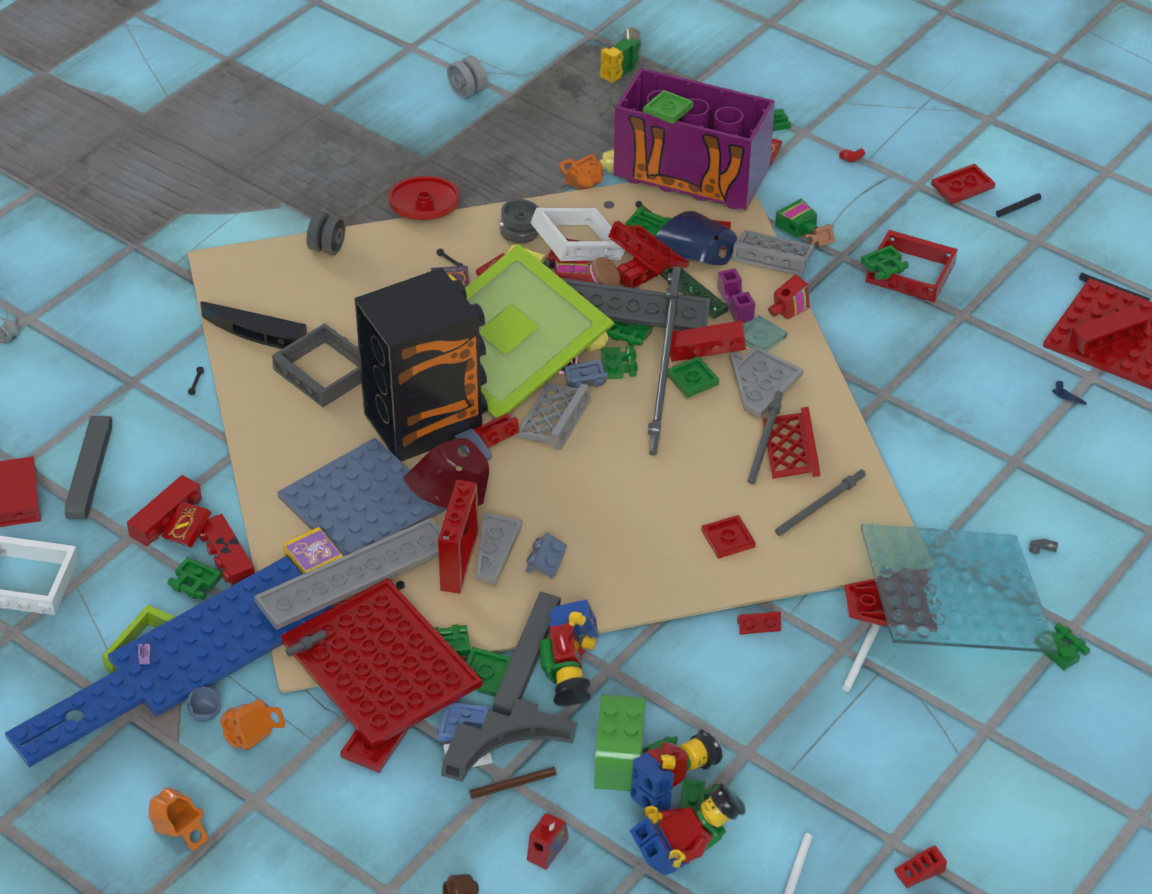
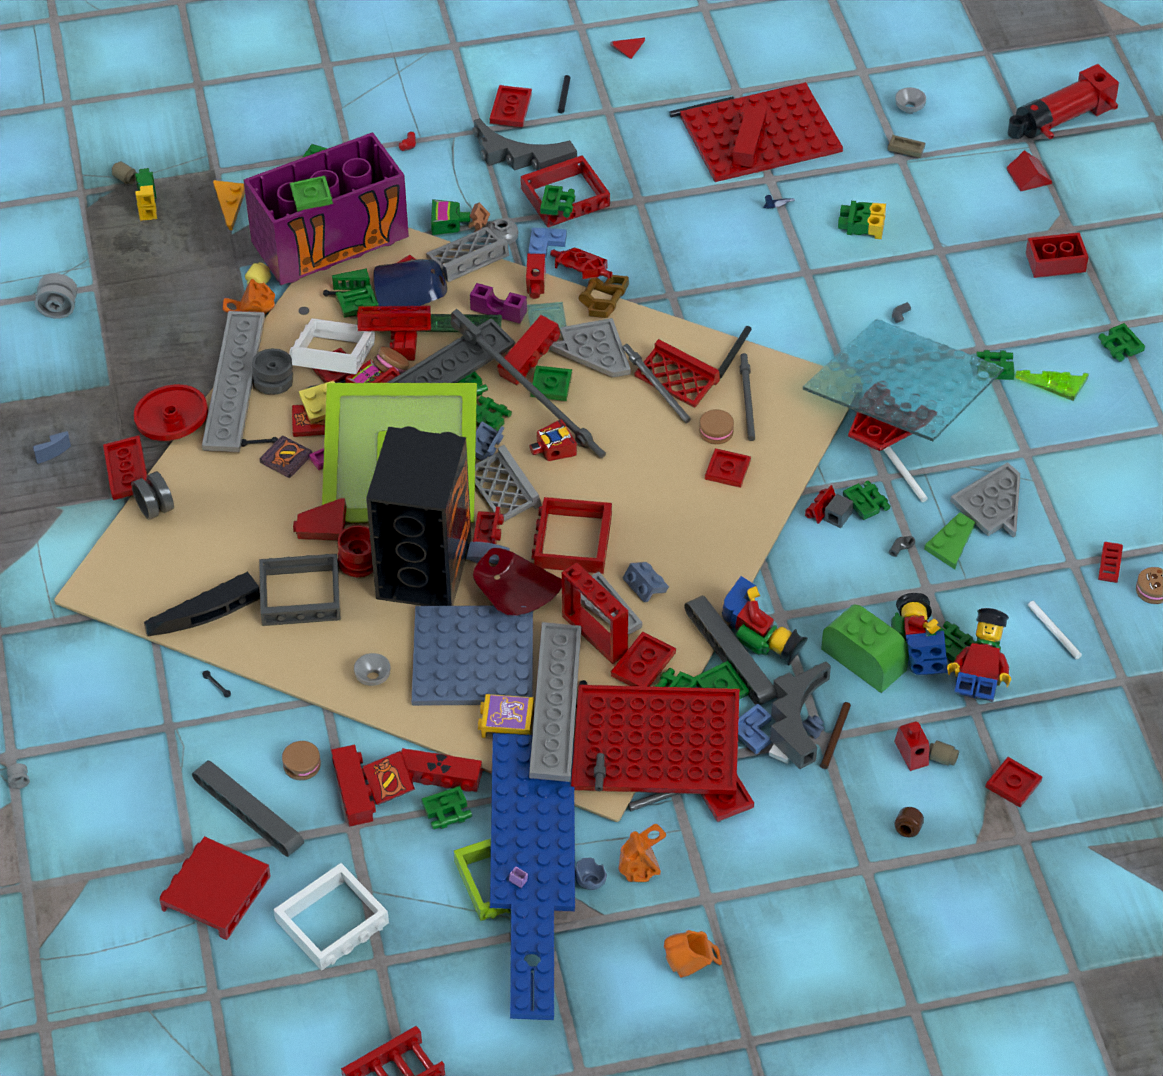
camera: 50 degrees left, 5 degrees up
(162, 468) = (301, 760): none -> medium nougat head
(283, 445) = (372, 663): none -> light grey piece
(318, 698) = (649, 800): none -> dark grey bar
(329, 165) = (49, 450): none -> sand blue slope
(355, 204) = (124, 465): none -> red plate
(457, 605) = (643, 661): none -> red plate
(487, 210) = (233, 382): none -> light grey plate
(507, 760) = (813, 725): none -> sand blue plate
(556, 506) = (576, 508): none -> red window
(562, 869) = (943, 753): none -> dark tan brick
(631, 414) = (554, 442): none -> red torso
(667, 207) = (356, 280): none -> green slope
(762, 501) = (716, 426): none -> medium nougat head
(763, 636) = (838, 510): none -> dark grey brick
(775, 701) = (900, 544): none -> dark grey arm
(791, 648) = (863, 503): none -> green plate
(817, 734) = (951, 540): none -> bright green wing
(824, 262) = (509, 233): none -> light grey piece
(839, 352) = (601, 307): none -> pearl gold bar
(843, 319) = (582, 261): none -> red plate
(846, 284) = (545, 237): none -> medium blue plate
(860, 465) = (736, 347): none -> pearl dark grey bar
(897, 736) = (992, 500): none -> light grey wing
(917, 219) = (518, 154): none -> dark grey arch
(1094, 705) = (1055, 382): none -> clear neon green wing
(1118, 458) = (863, 218): none -> green hips
(1120, 208) = (629, 46): none -> red slope

